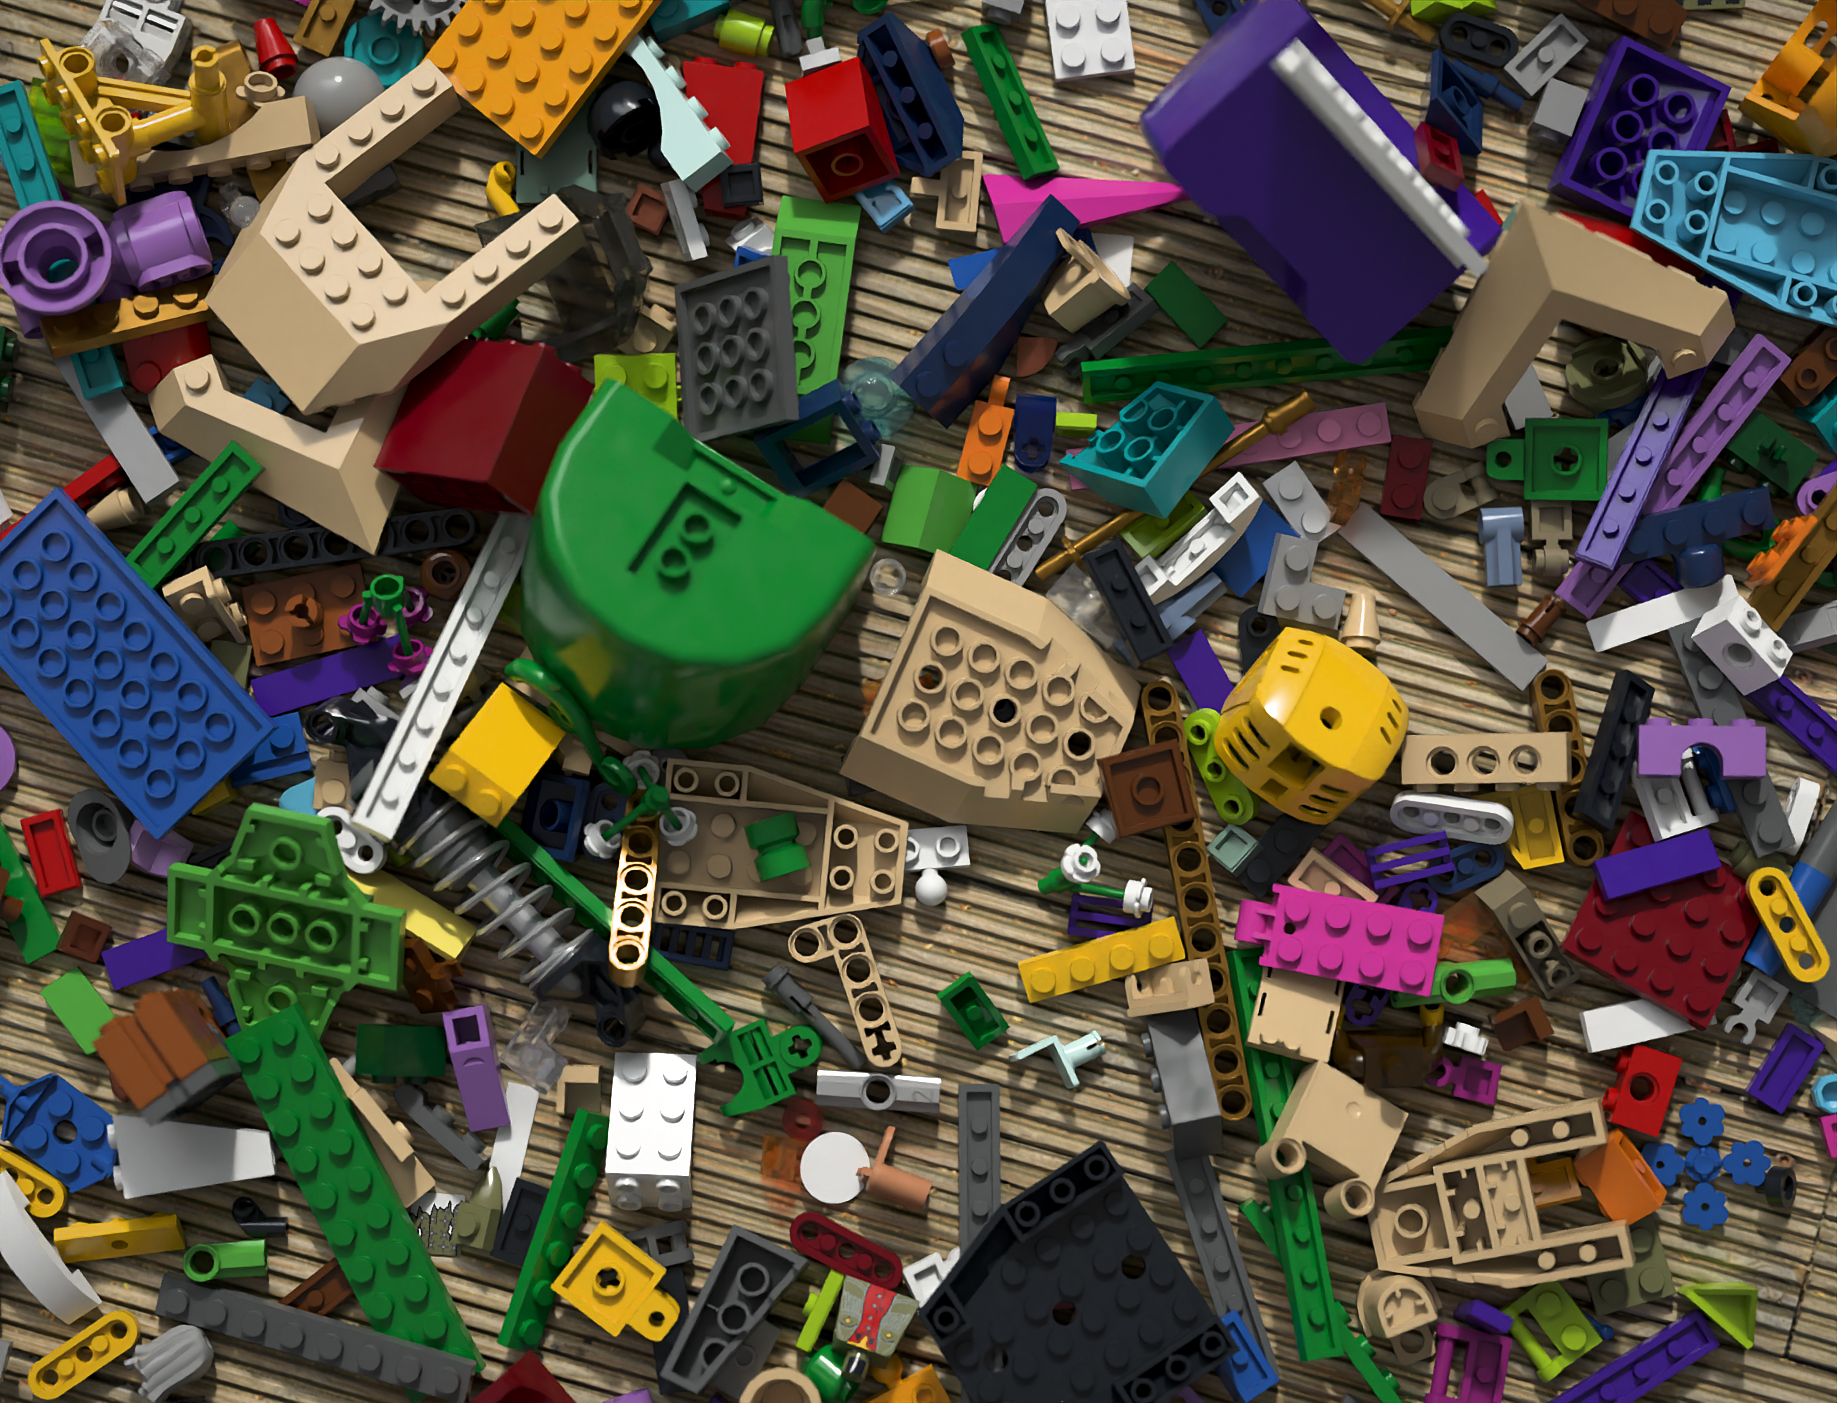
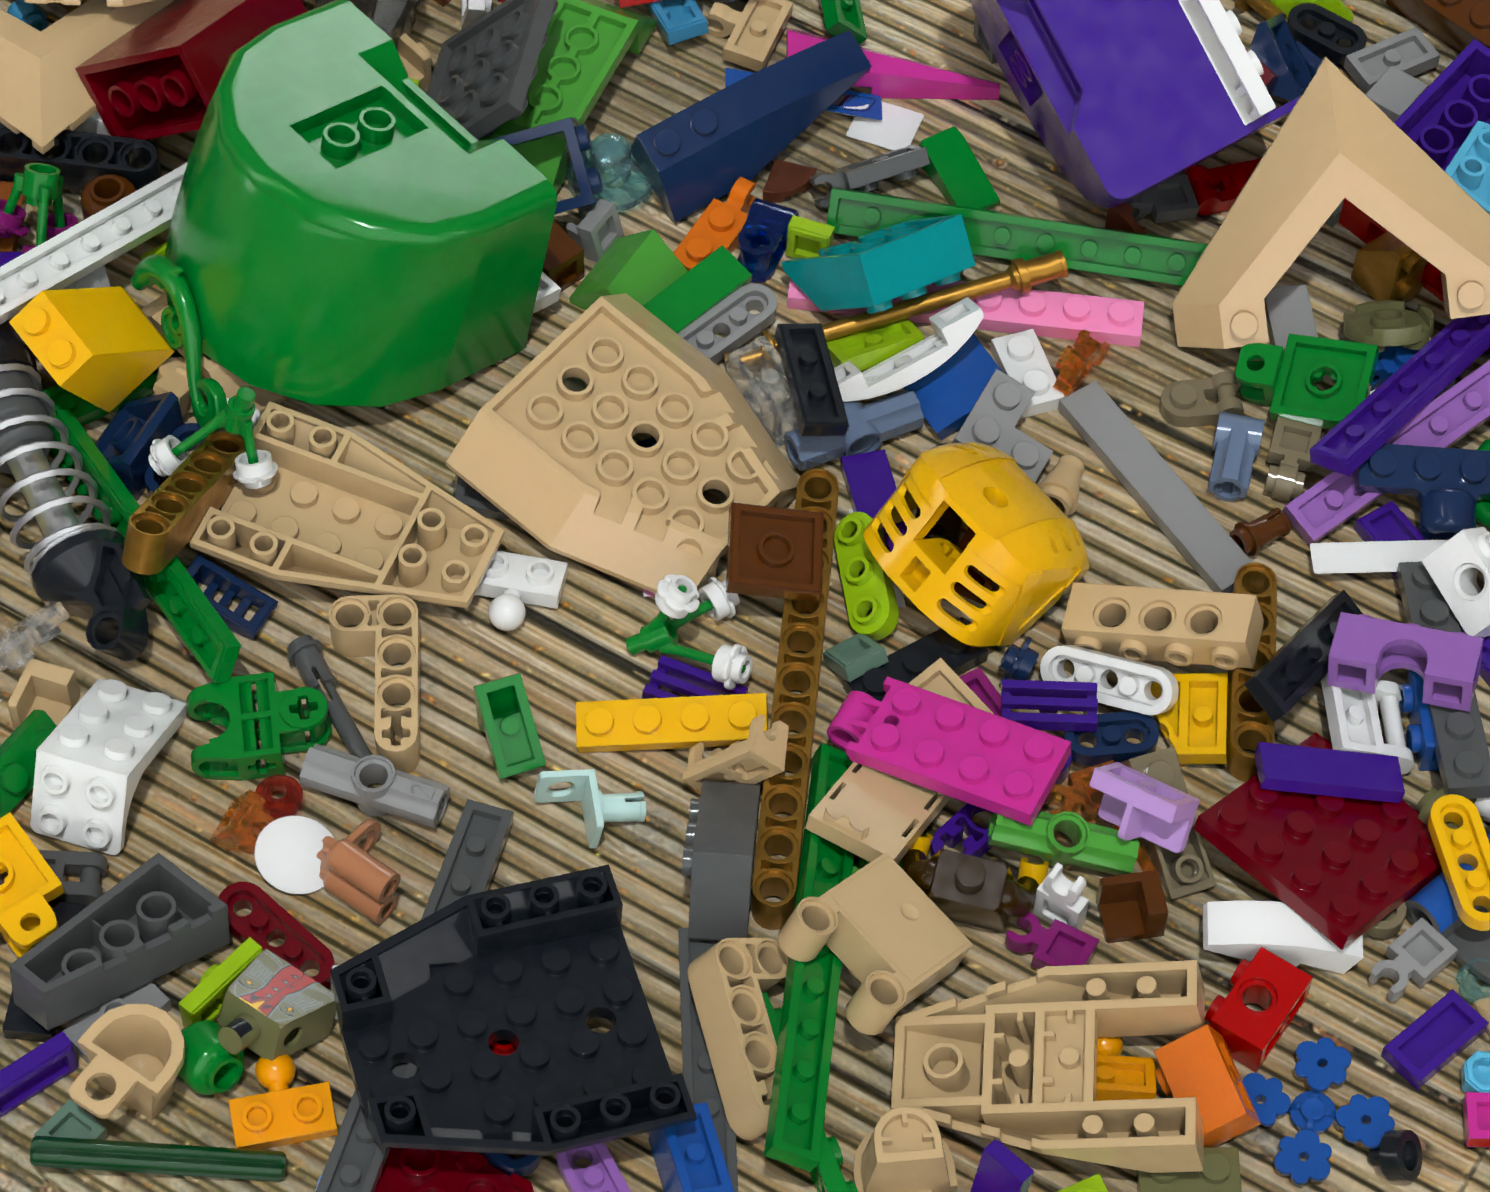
camera: 10 degrees right, 30 degrees down
(777, 846) = (353, 511): green wheel -> none
(876, 574) = (562, 312): clear bush -> none
(1081, 286) = (858, 126): tan container -> none
(1239, 1237) = (736, 1025): none -> tan beam
(1370, 815) = (1018, 661): none -> dark blue plate
(1405, 478) = (1147, 375): dark red plate -> none
(1515, 946) = (1144, 806): none -> lavender panel

